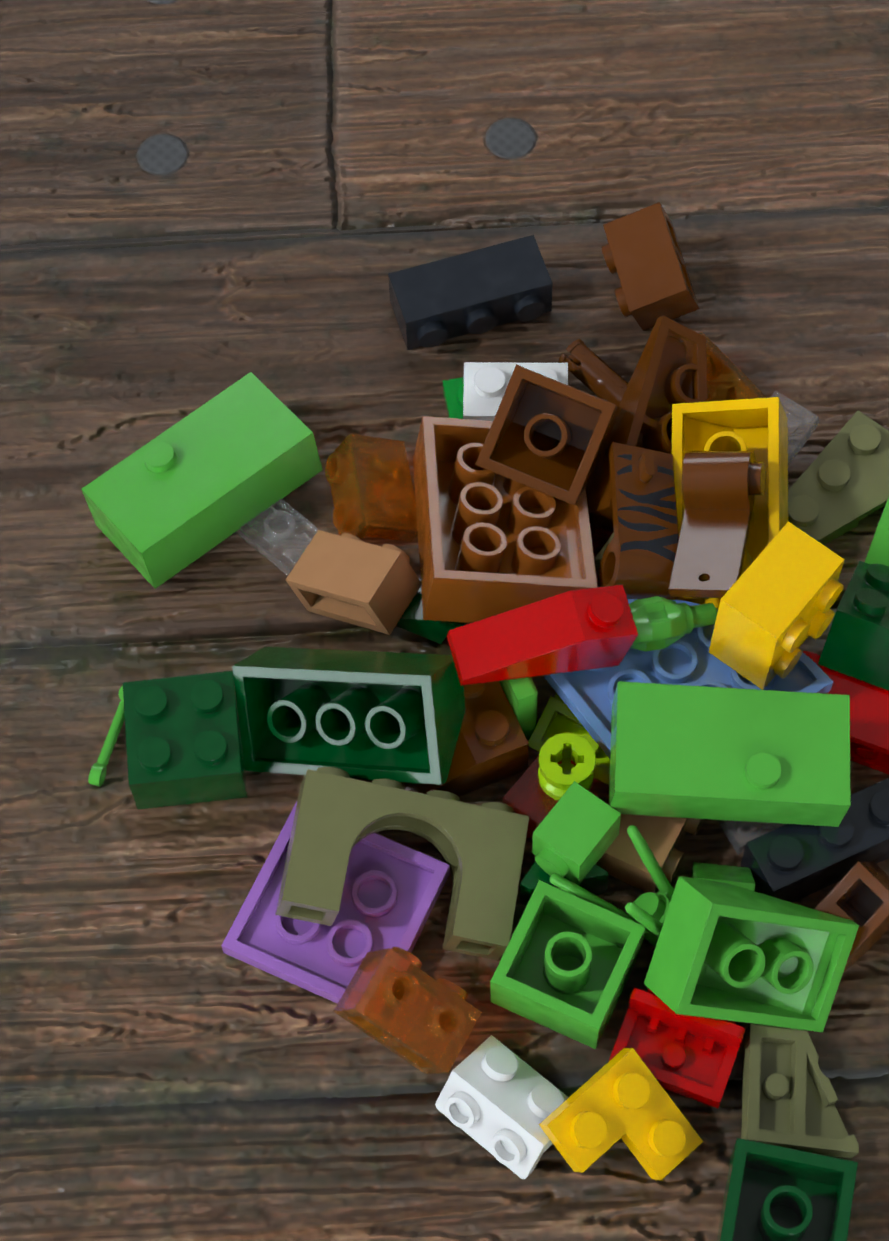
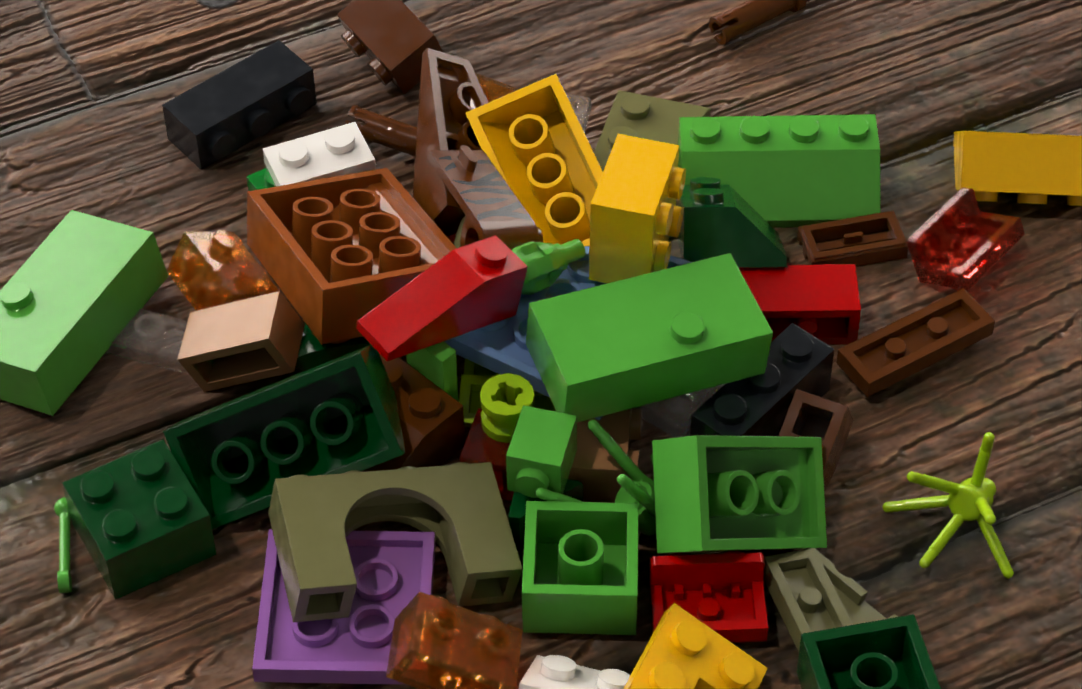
camera: 25 degrees left, 15 degrees down
(547, 435) = (368, 163): reddish brown slope -> none
(716, 521) = (547, 175): reddish brown door -> none

